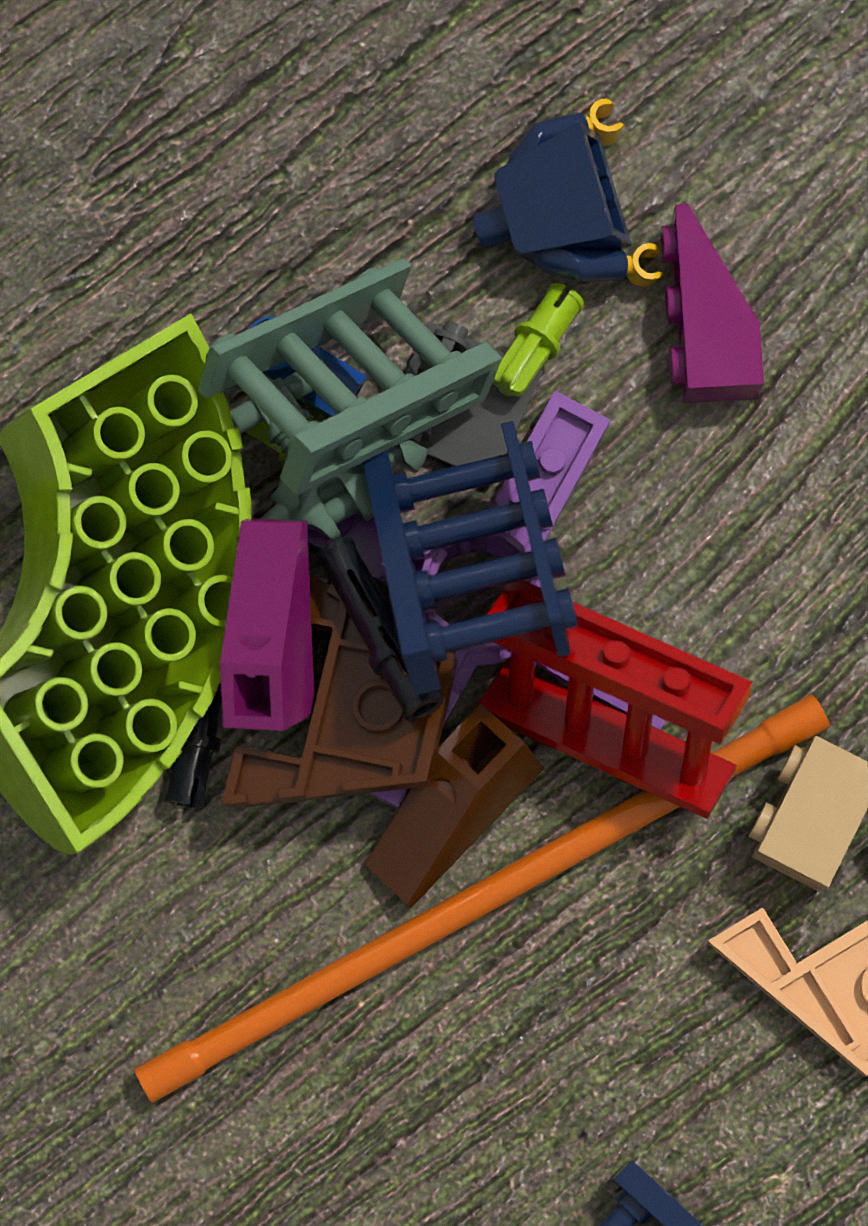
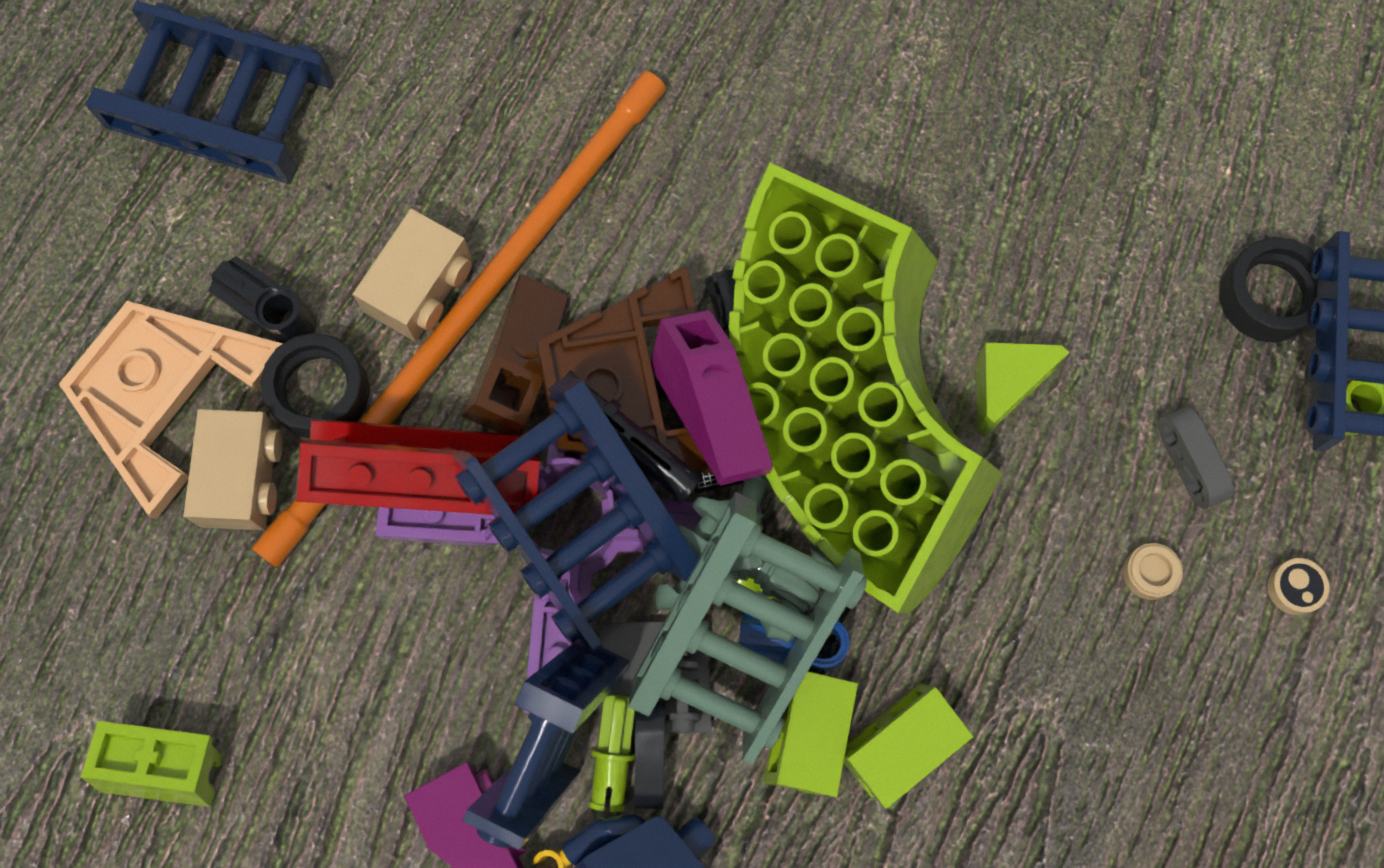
camera: 155 degrees right, 5 degrees down
(241, 220) = (905, 744): none -> lime hinge
(327, 256) = (813, 737): none -> lime hinge
(504, 310) = (650, 758): none -> black beam
(527, 951) = (414, 275): none -> tan brick
(581, 344) = (557, 702): none -> dark blue fence
(716, 1013) = (261, 300): none -> black piece
(739, 869) = (296, 353): none -> black tyre

